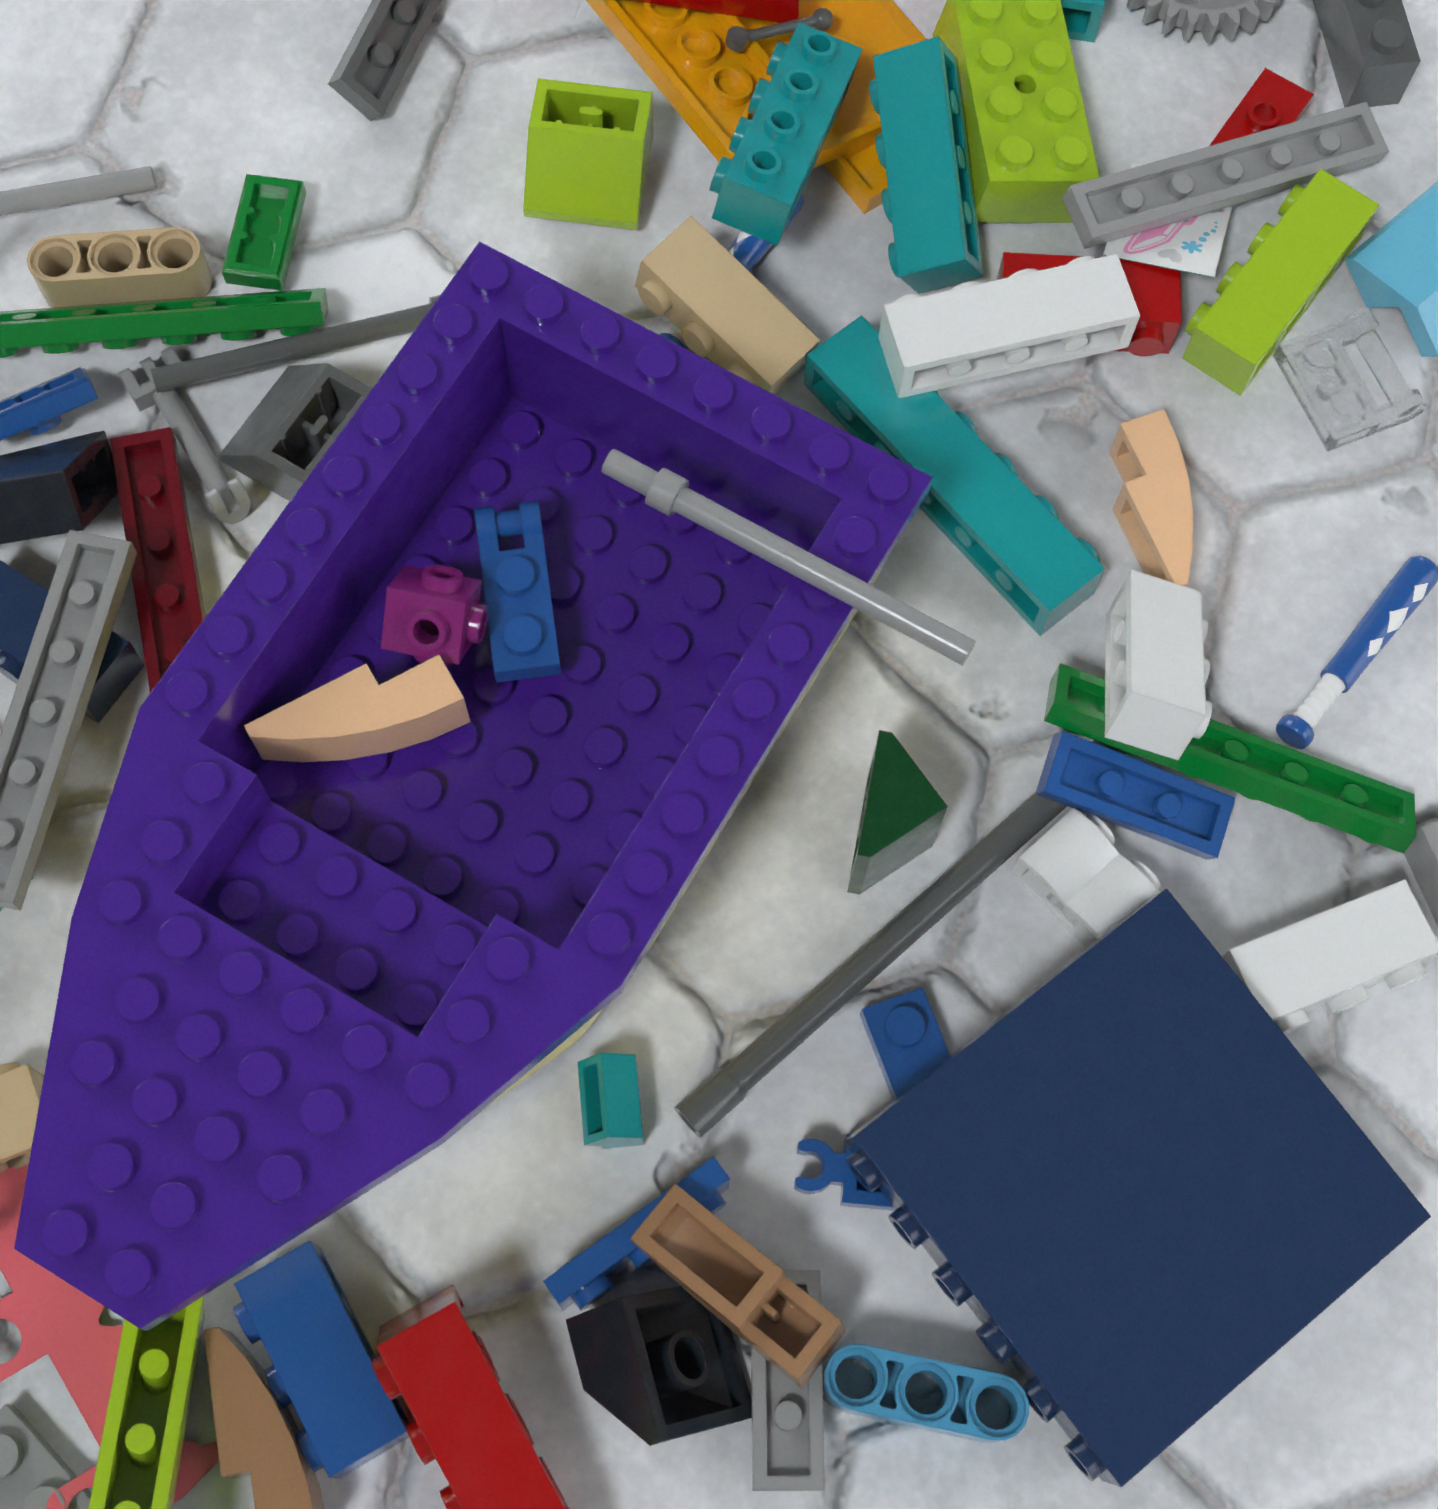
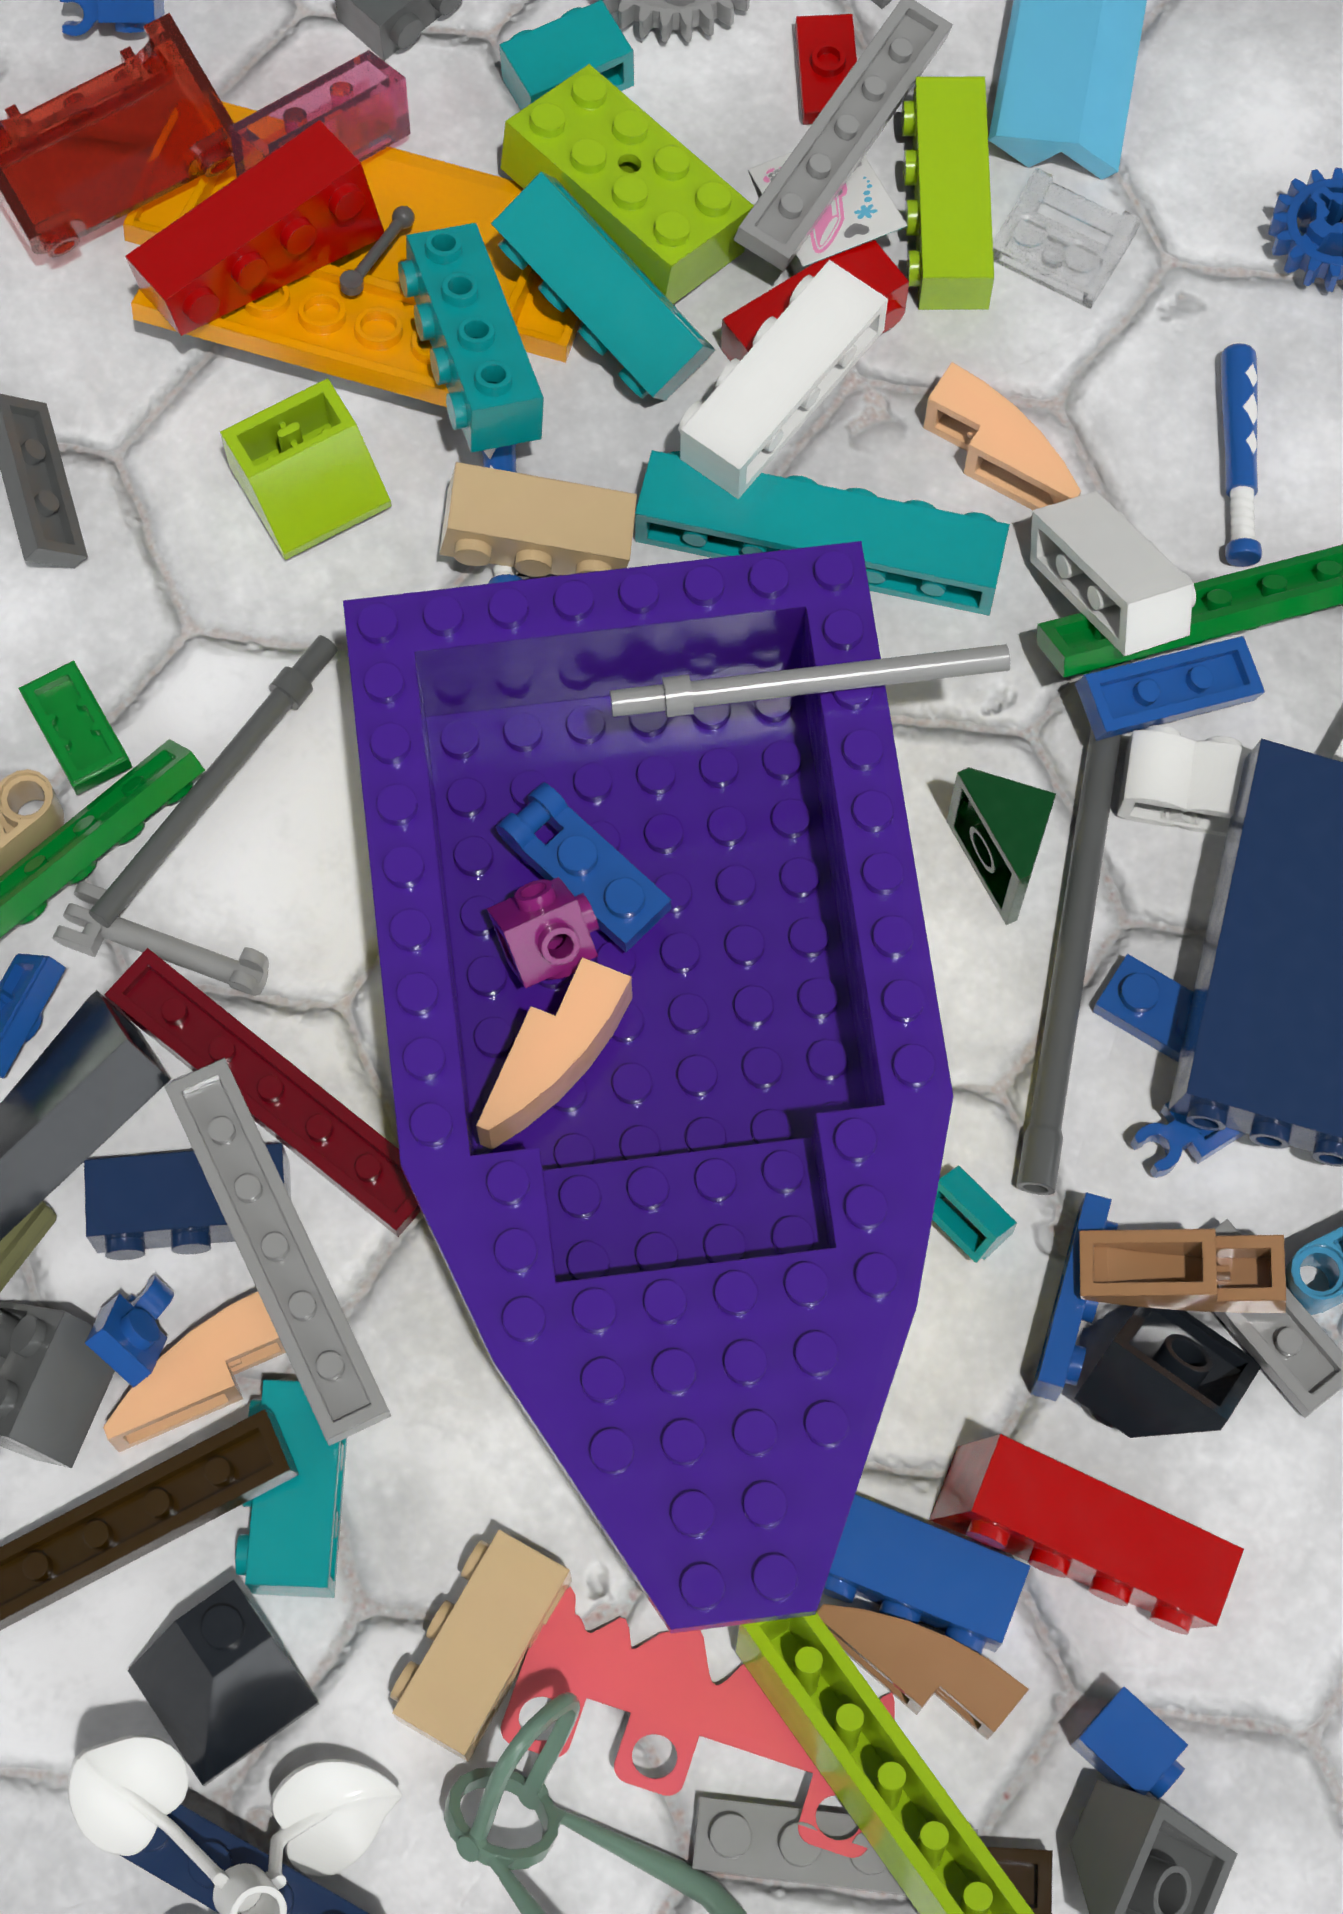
camera: 35 degrees left, 0 degrees up
(294, 426) = (266, 871): dark grey slope -> none

